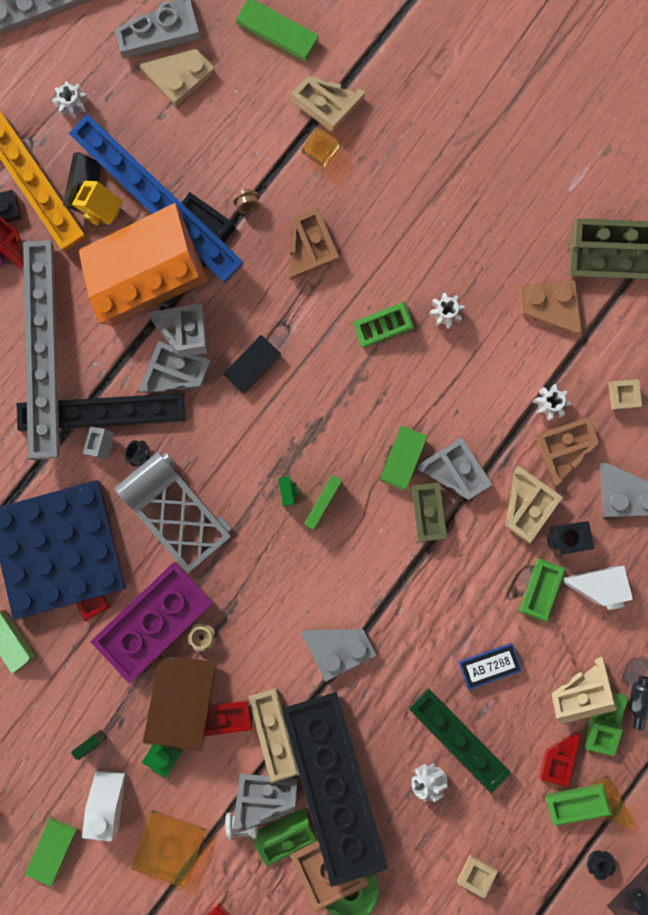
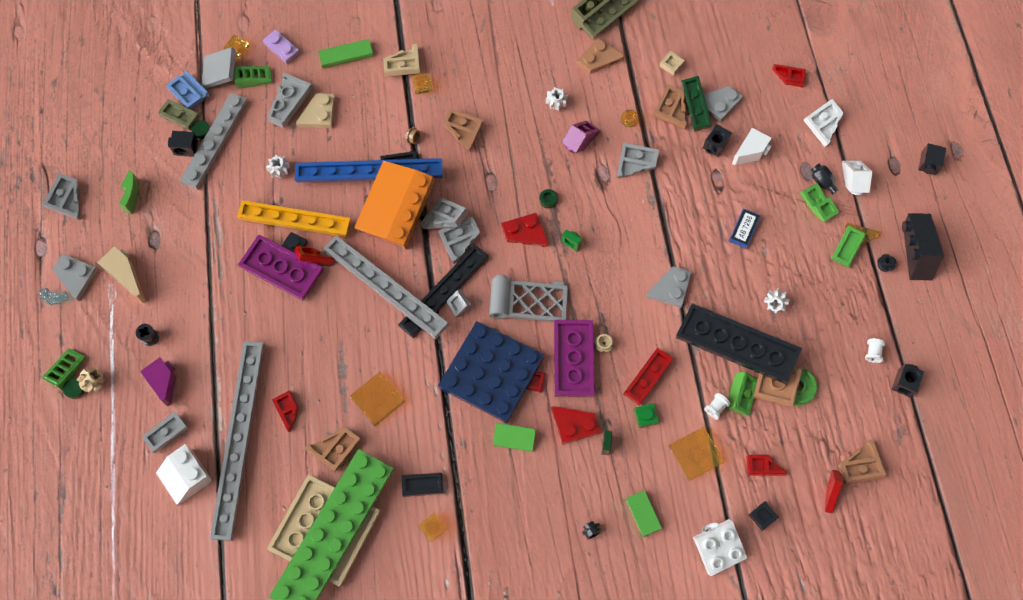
camera: 45 degrees left, 15 degrees down
(81, 690) = (574, 424): none -> red wing
(82, 169) = (324, 197): black tile -> none
(97, 203) = (342, 197): yellow brick -> none
(104, 806) = (645, 463): white slope -> none
(137, 453) = (482, 290): black plate -> none
(180, 703) = (628, 377): reddish brown tile -> none
(252, 364) = (492, 203): black tile -> none
(253, 430) = (525, 230): none -> red wing
(262, 801) = (713, 382): light grey wing -> none
(273, 735) = (686, 351): tan tile -> none
(316, 418) = (548, 198): none -> dark green tile
(323, 502) = (593, 229): bright green tile -> none
(381, 315) = (535, 117): bright green slope -> none
(403, 458) = (607, 177): bright green slope -> none
(425, 381) = (580, 136): none -> magenta slope
(428, 512) = (644, 189): olive plate -> none
(459, 740) = (768, 271): dark green plate -> none
(477, 876) = (842, 320): tan plate -> none
(512, 411) = (629, 114): none -> clear yellow plate
(529, 504) = (683, 144): tan wing -> none
(542, 590) = (729, 175): bright green tile -> none
(557, 397) = (644, 94): white gear -> none
(560, 760) = (820, 238): red tile -> none
(585, 695) = (798, 197): tan wing -> none
(597, 470) = (696, 103): none -> dark green tile

